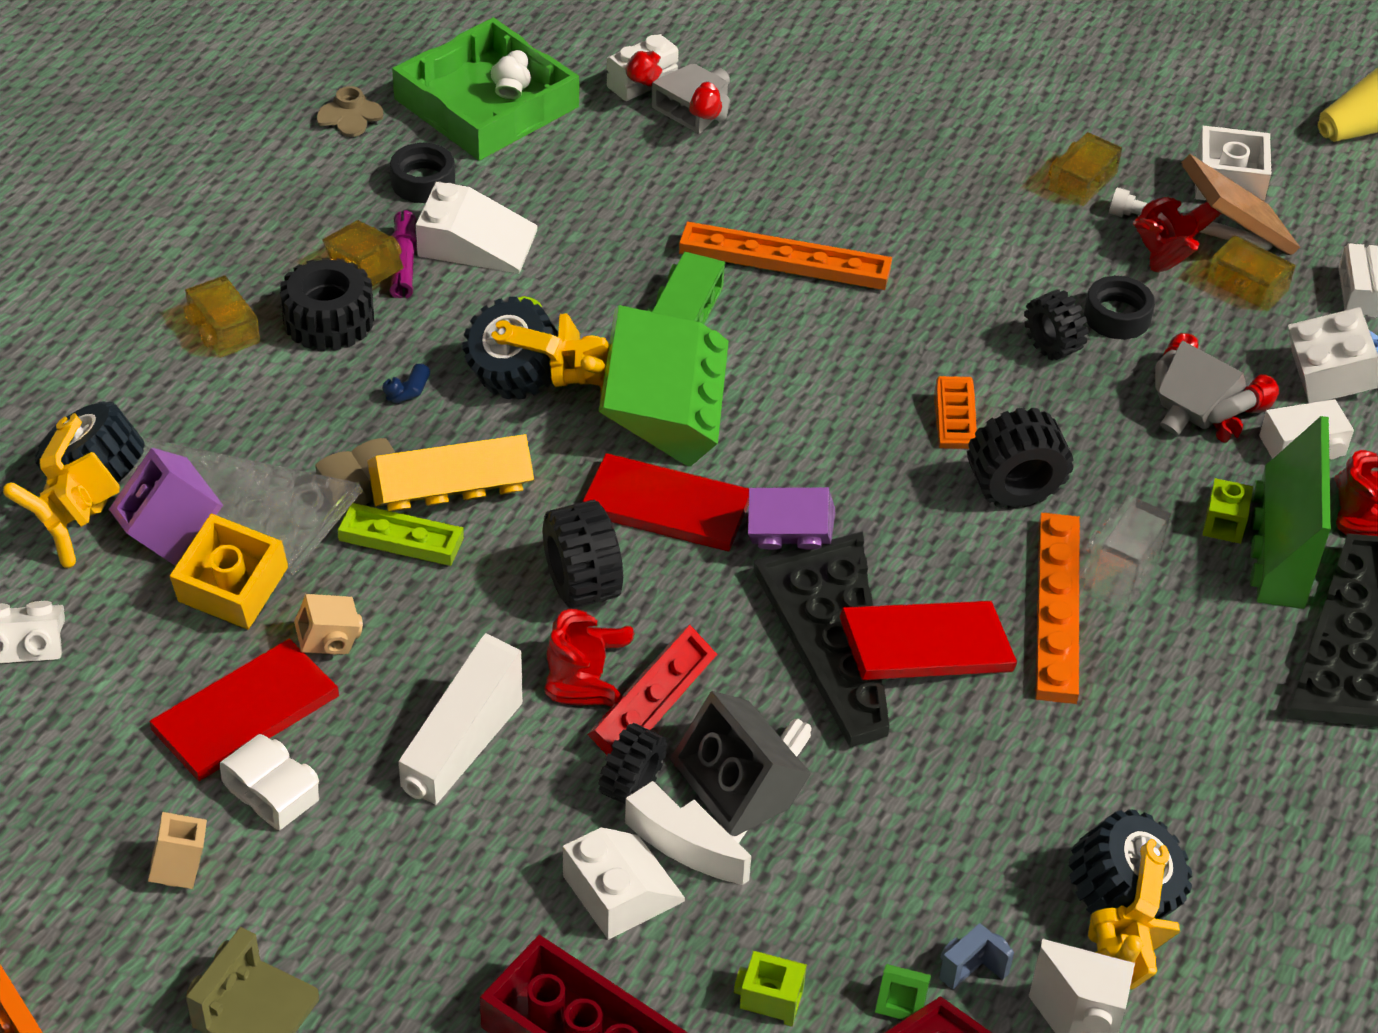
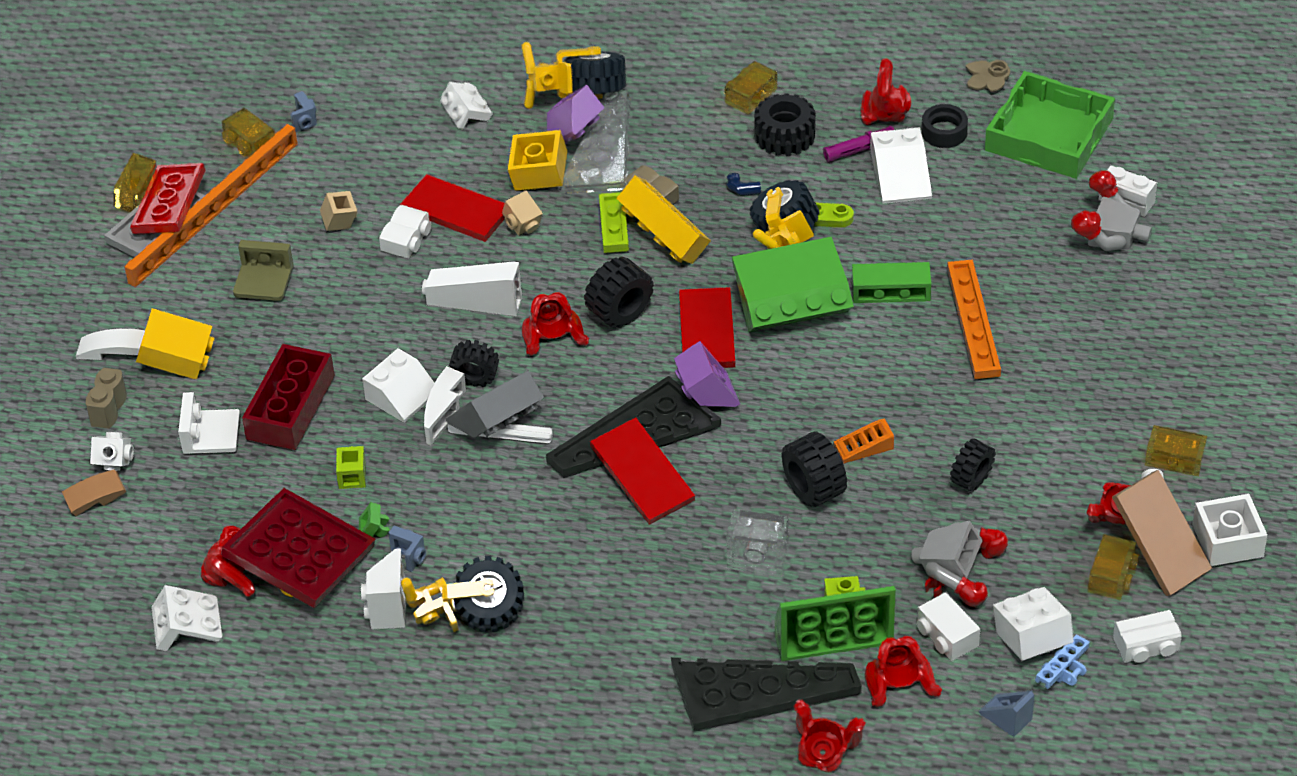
camera: 75 degrees right, 0 degrees up
(353, 197) = (885, 101): none -> red hair
(367, 248) = (837, 122): clear yellow brick -> none
(511, 75) = (1066, 132): white animal -> none
(656, 688) = (544, 362): plate -> none
(1058, 609) = (695, 534): orange plate -> none
(1115, 324) = (1023, 517): black tyre -> none

